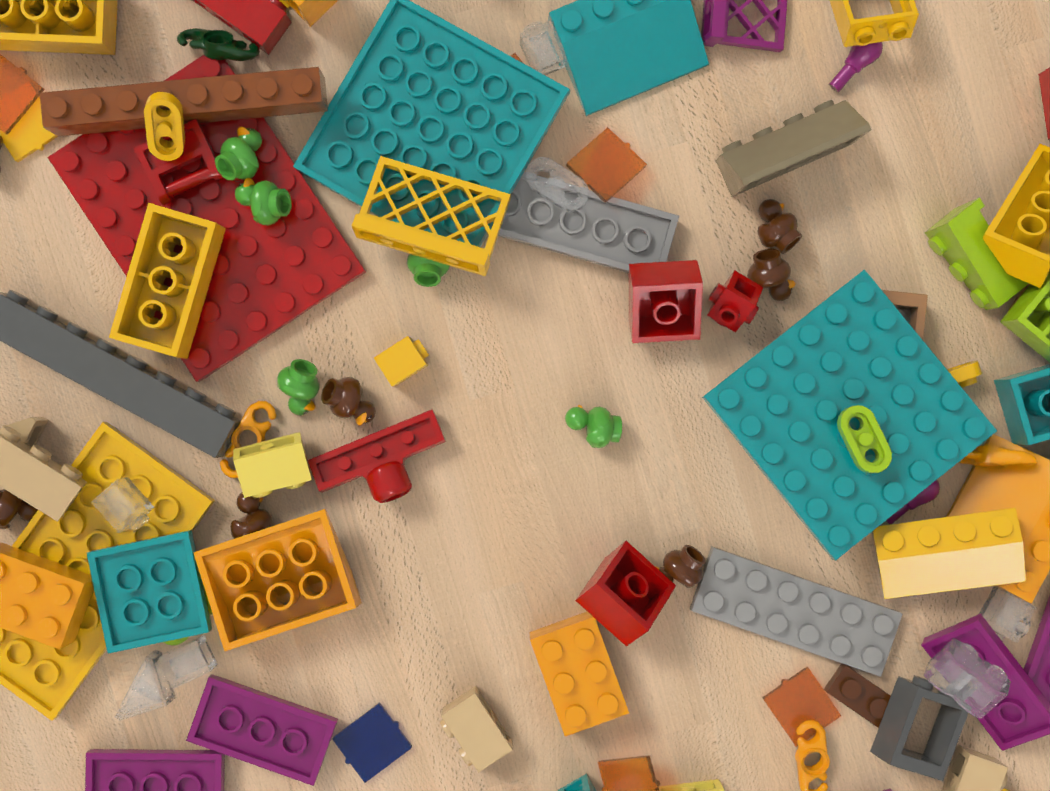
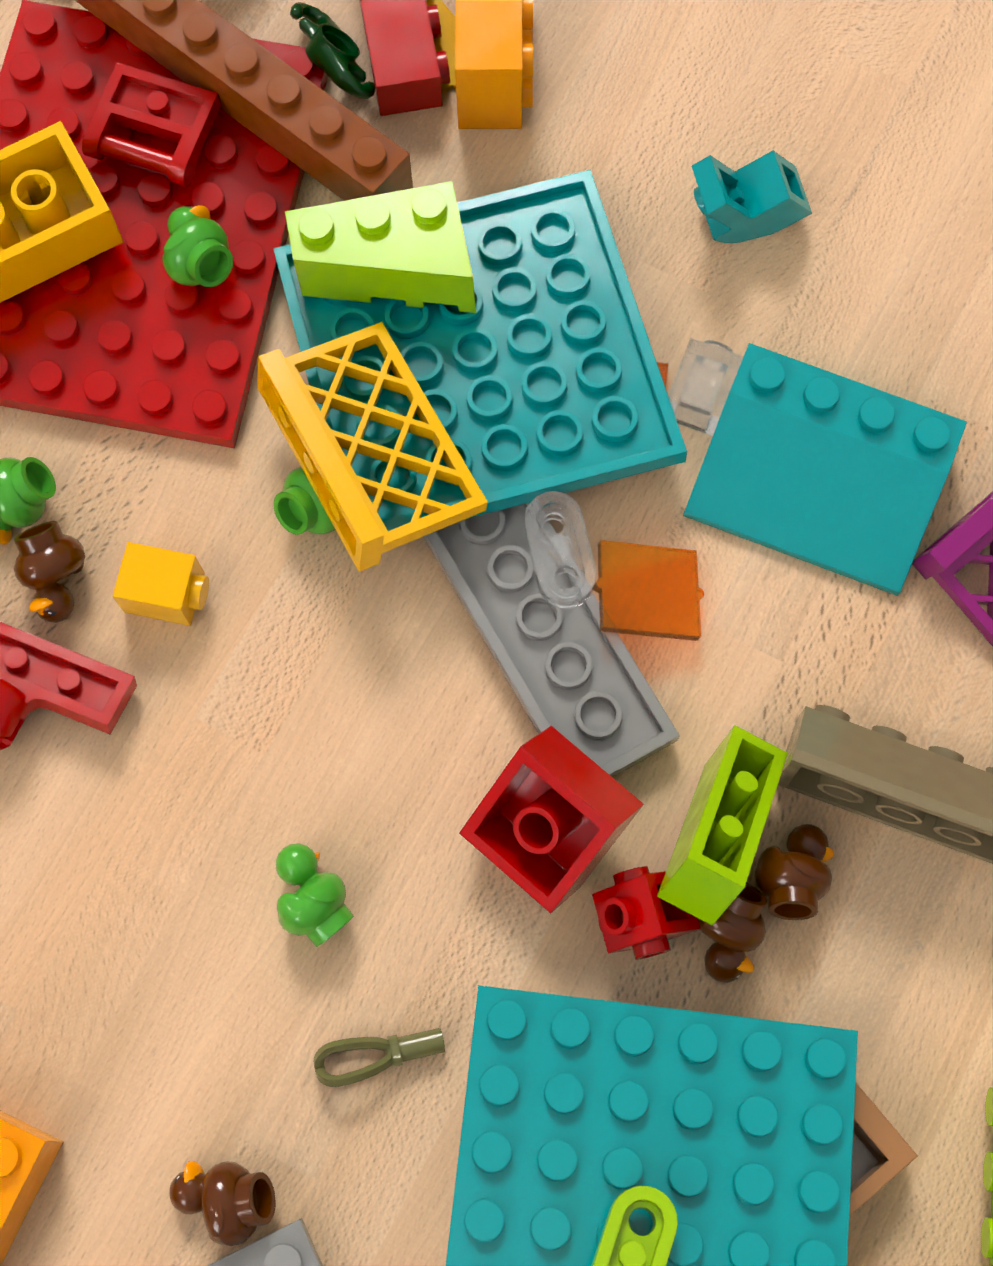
camera: 50 degrees right, 15 degrees down
(164, 123) = (168, 53): yellow plate -> none
(238, 155) = (220, 172): bright green animal -> none
(350, 119) = (385, 247): none -> wedge
(626, 593) = (117, 1153): red brick -> none
(687, 450) = (396, 1050): none -> olive piece
(737, 237) = (723, 826): none -> lime brick

